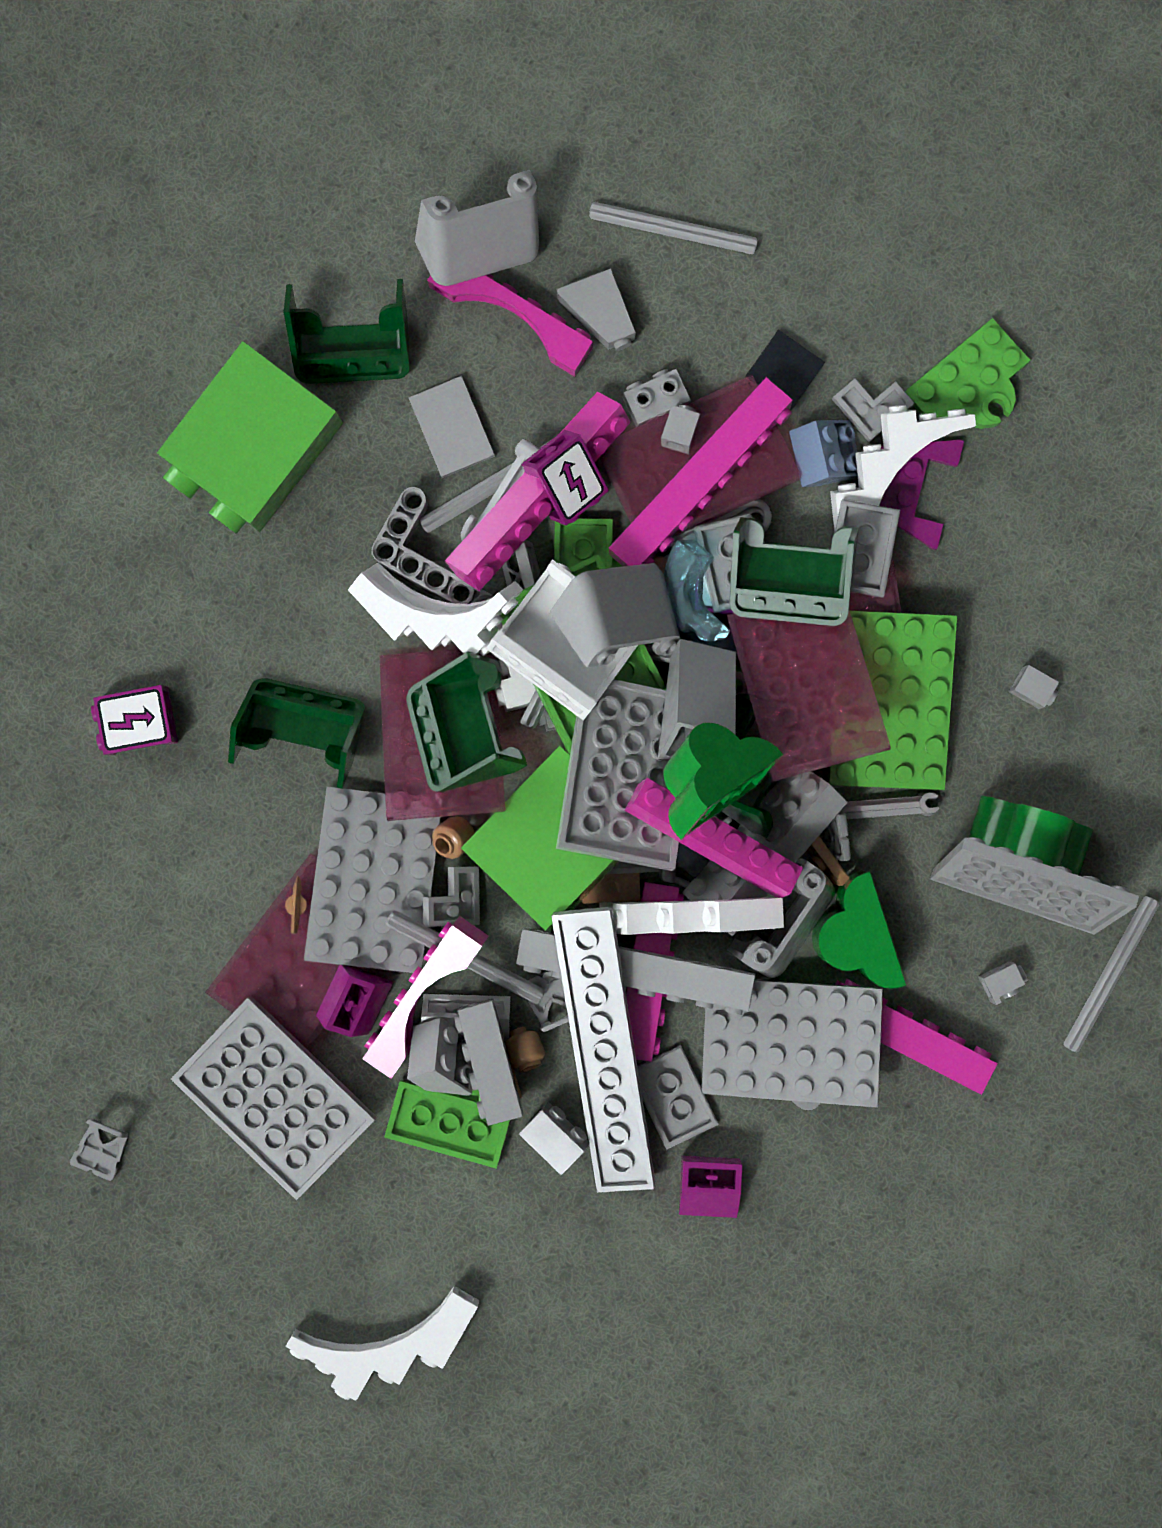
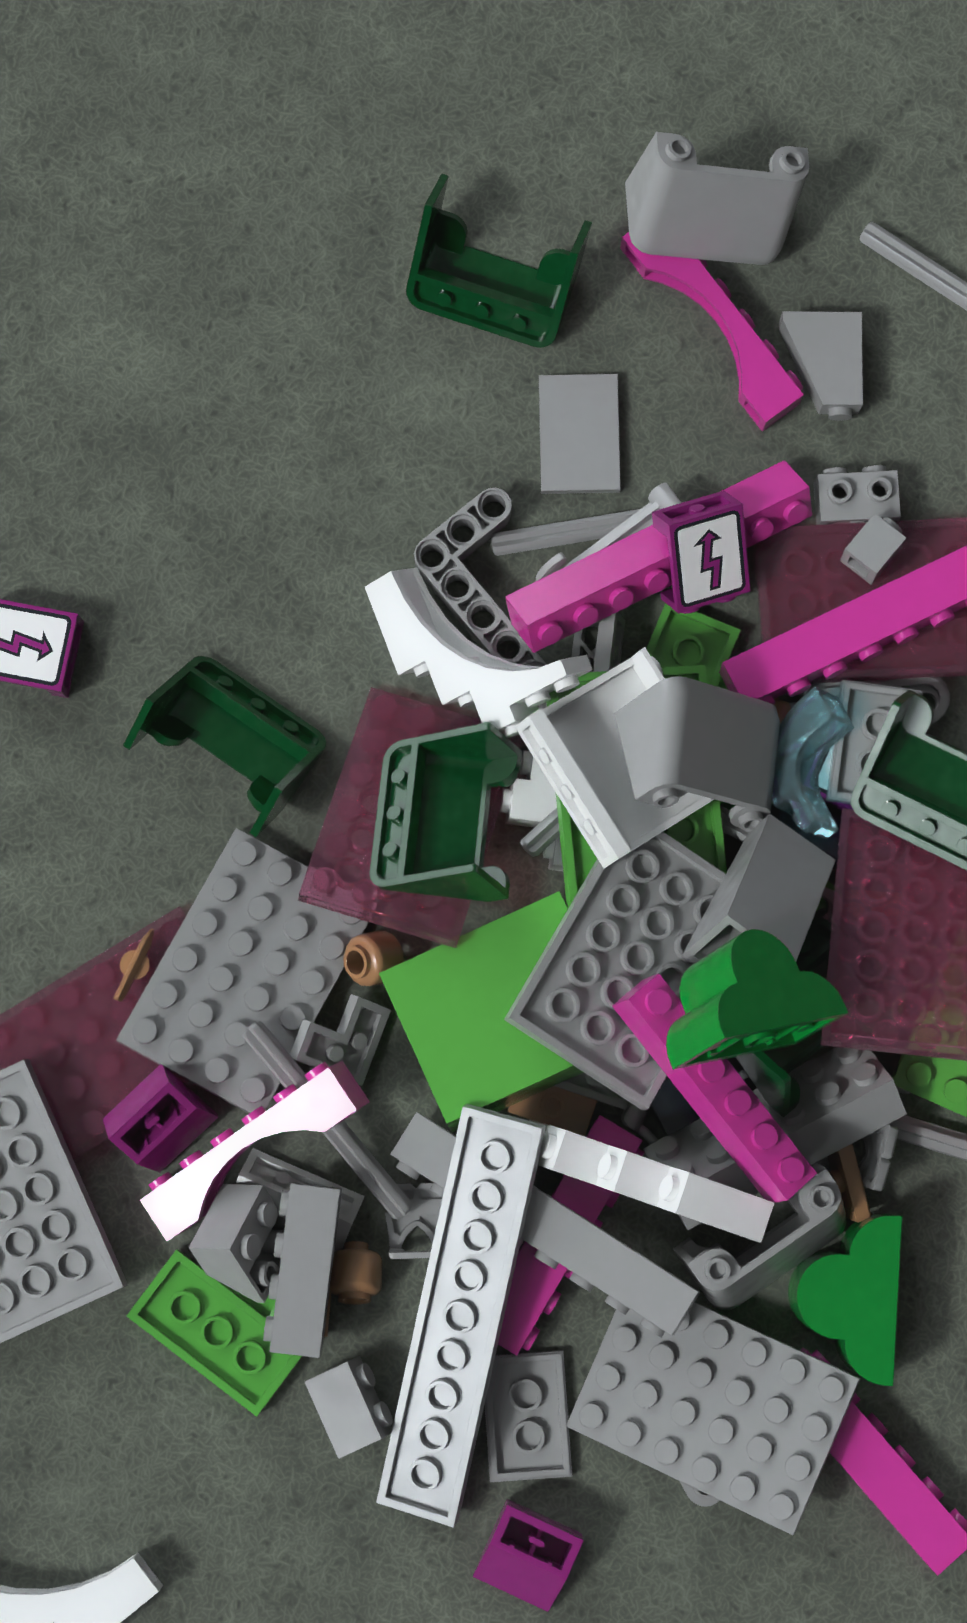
camera: 20 degrees right, 5 degrees down
(248, 440) = (314, 349): bright green brick -> none

